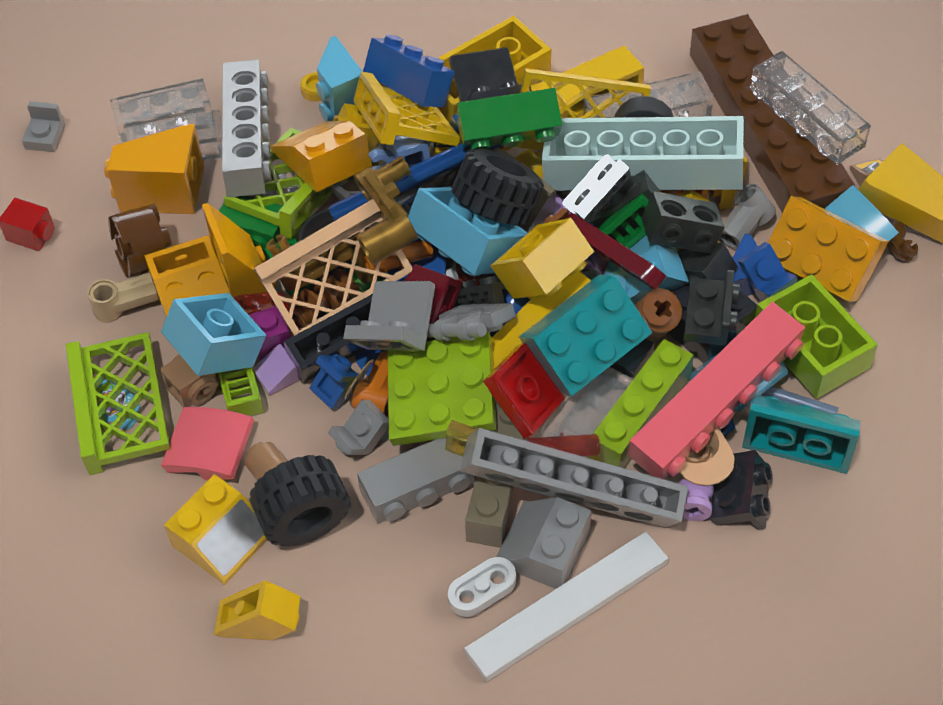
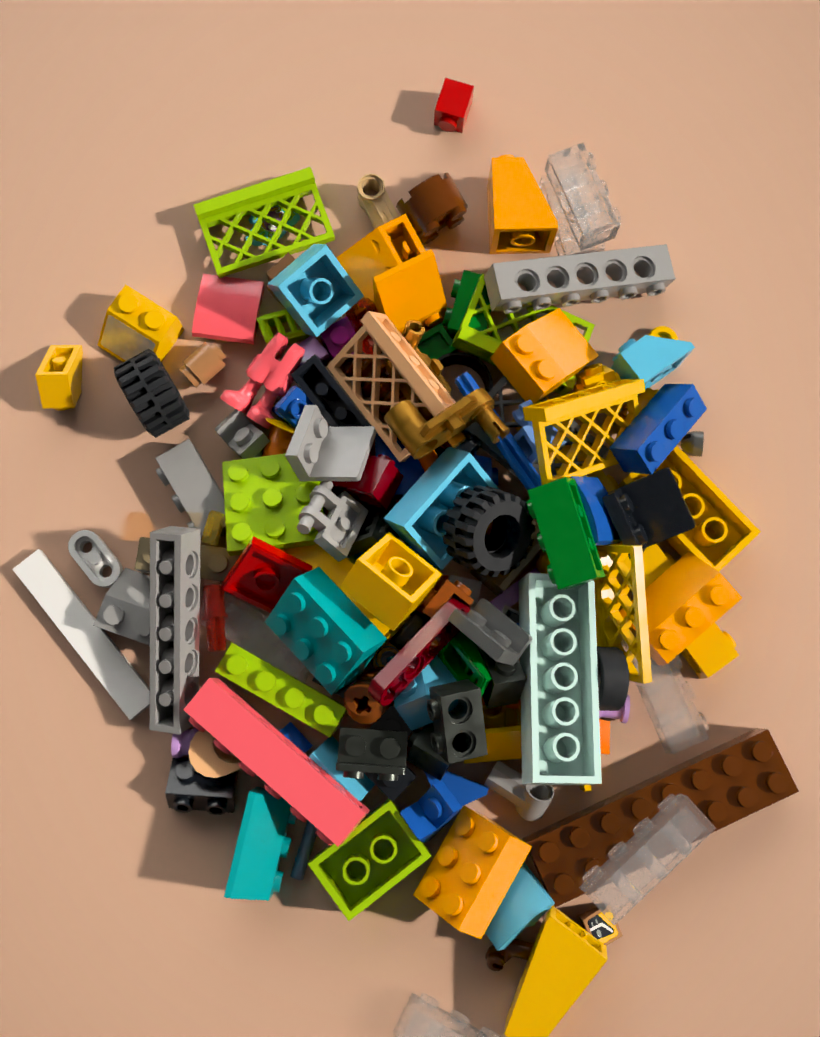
camera: 80 degrees right, 25 degrees up
(44, 127) = (576, 95): light grey bracket -> none
(294, 390) = (272, 374): none -> coral piece
(580, 53) = (684, 605): none -> light orange slope

